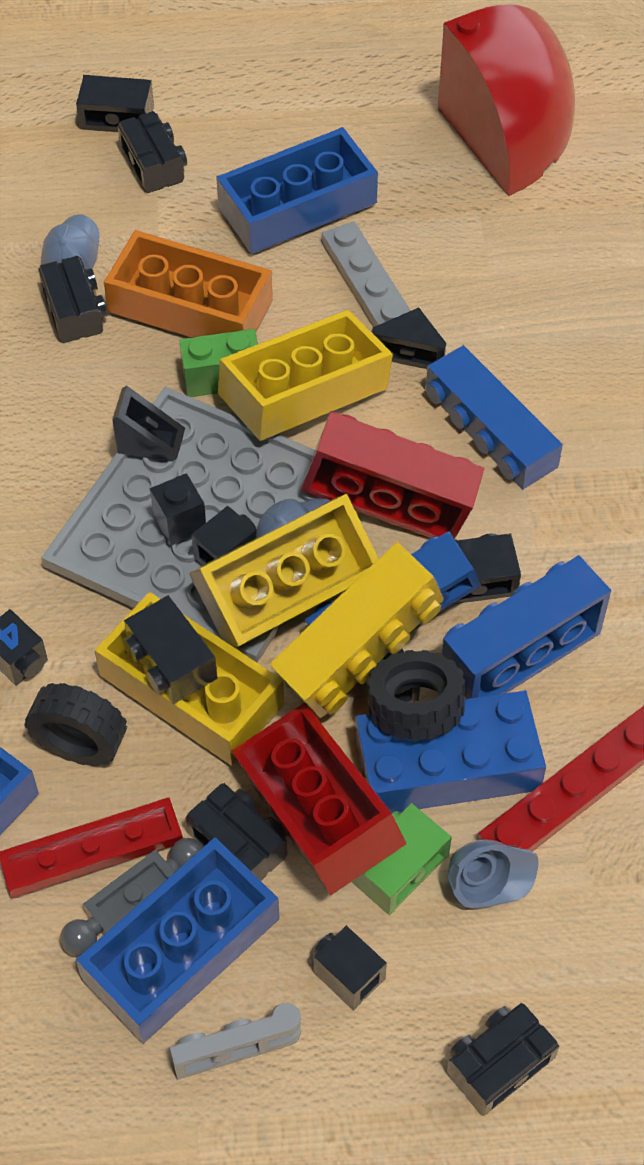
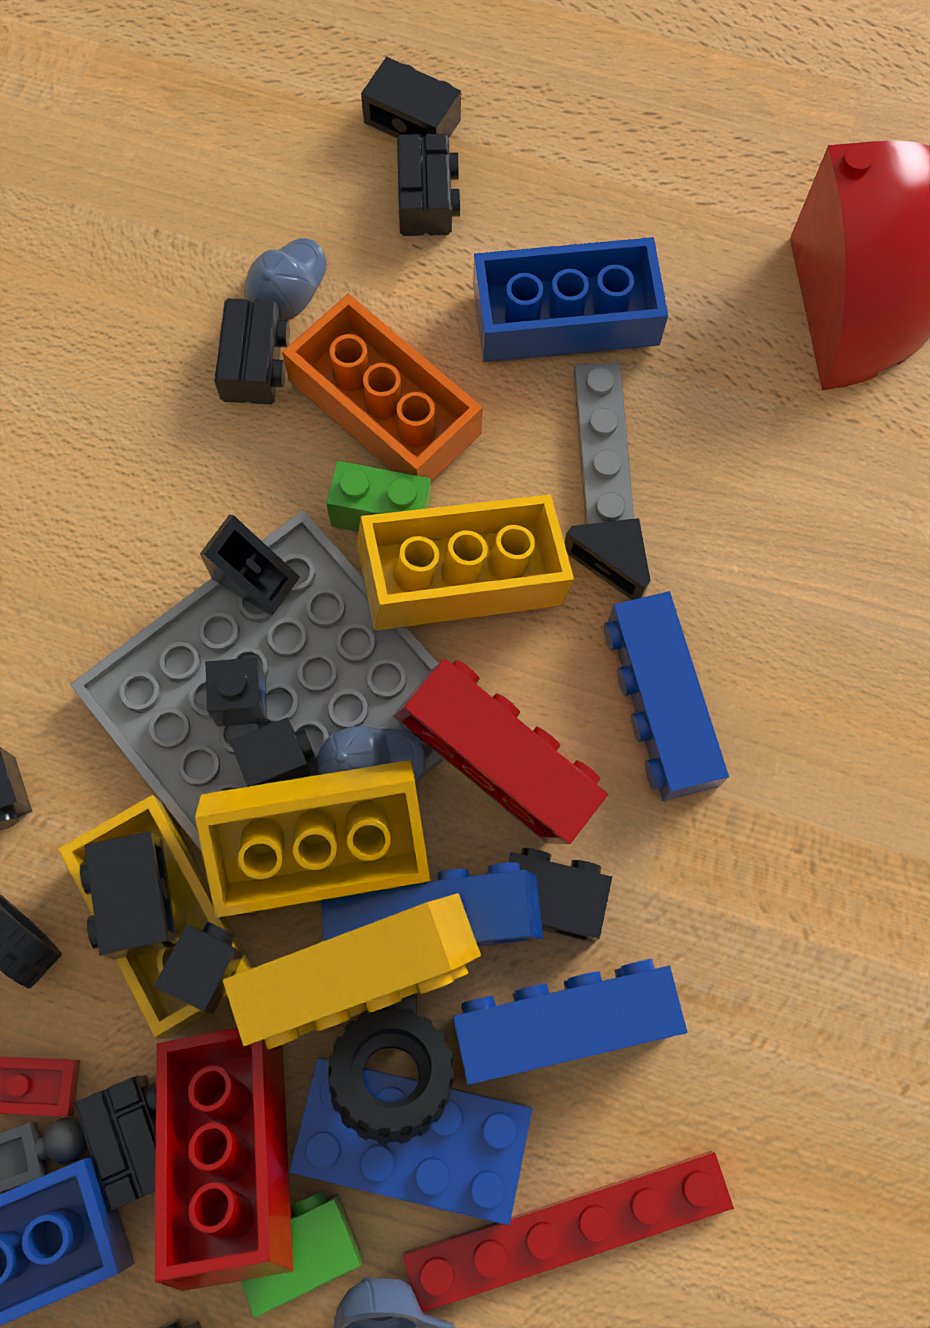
camera: 20 degrees right, 15 degrees up
(245, 676) = (199, 966): none -> black brick

